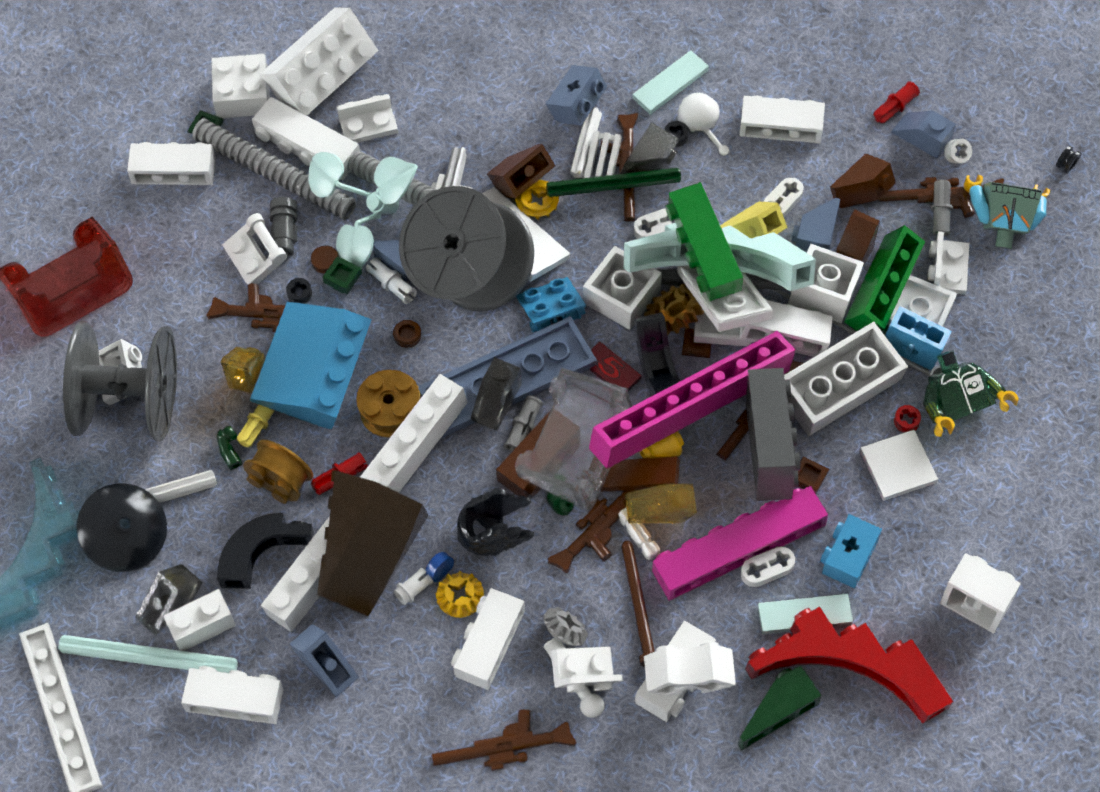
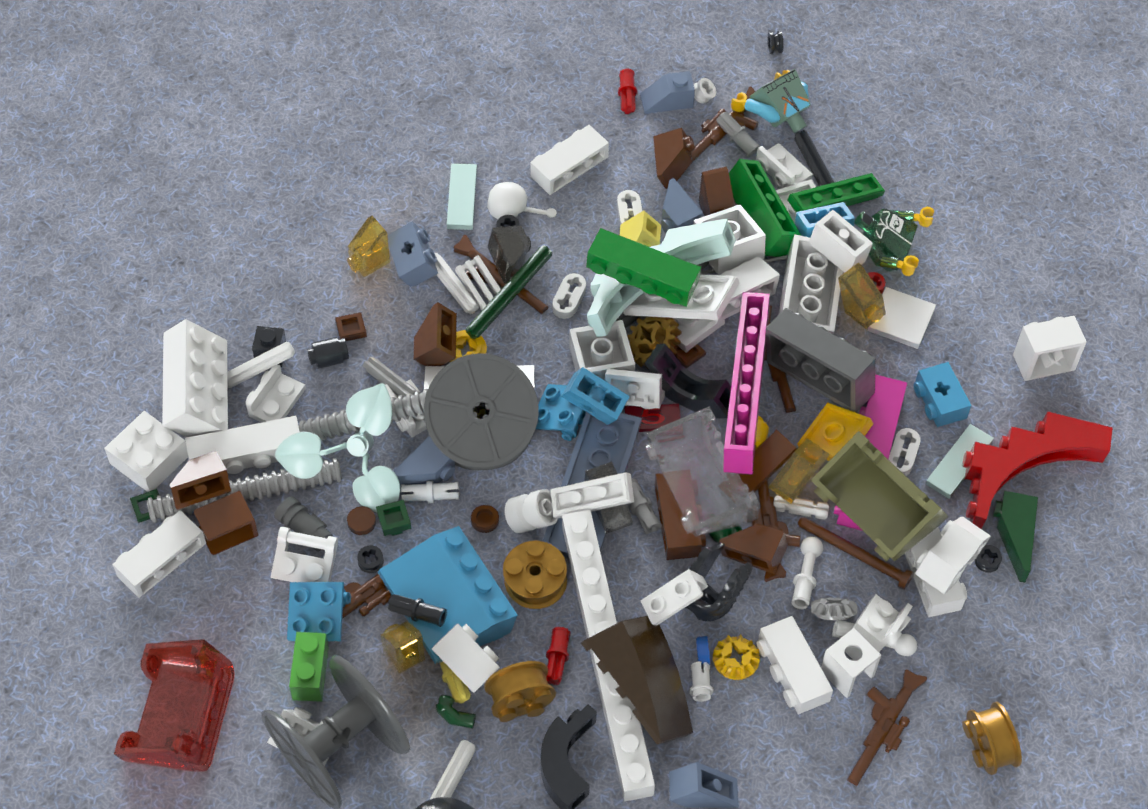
camera: 50 degrees left, 5 degrees down
(180, 316) = (309, 666): none -> bright green brick
(220, 293) = (316, 608): none -> dark azure hinge
(233, 179) = (226, 522): none -> reddish brown piece
(240, 133) = (200, 480): none -> reddish brown slope
(265, 412) = (466, 657): none -> white brick
(273, 351) = (417, 610): none -> black axle
(377, 86) = (259, 364): none -> white axle
(402, 79) = (267, 339): none -> black brick
(435, 355) = (530, 511): none -> white wheel
(438, 118) = (328, 352): none -> black brick
(443, 502) = (674, 596): none -> white bracket
(476, 379) = (592, 495): none -> white tile
(478, 114) = (351, 326): none -> reddish brown tile
(534, 679) = (841, 670): none -> white piece
(549, 64) = (369, 248): none -> clear yellow slope
(564, 530) = (757, 544): none -> reddish brown slope
(568, 310) = (595, 396): none -> dark azure brick
(610, 570) = (805, 582): none -> white pin
(612, 333) = (642, 387): none -> white bracket
(689, 575) = (878, 498): none -> olive windscreen
(725, 502) = (835, 428): none -> yellow tile
(742, 705) = (992, 552): none -> black bush
(872, 416) = (861, 297): none -> clear yellow slope
(894, 356) = (840, 241): none -> white brick
(964, 323) = (848, 191): none -> green tile
(982, 282) = (813, 158): none -> black axle

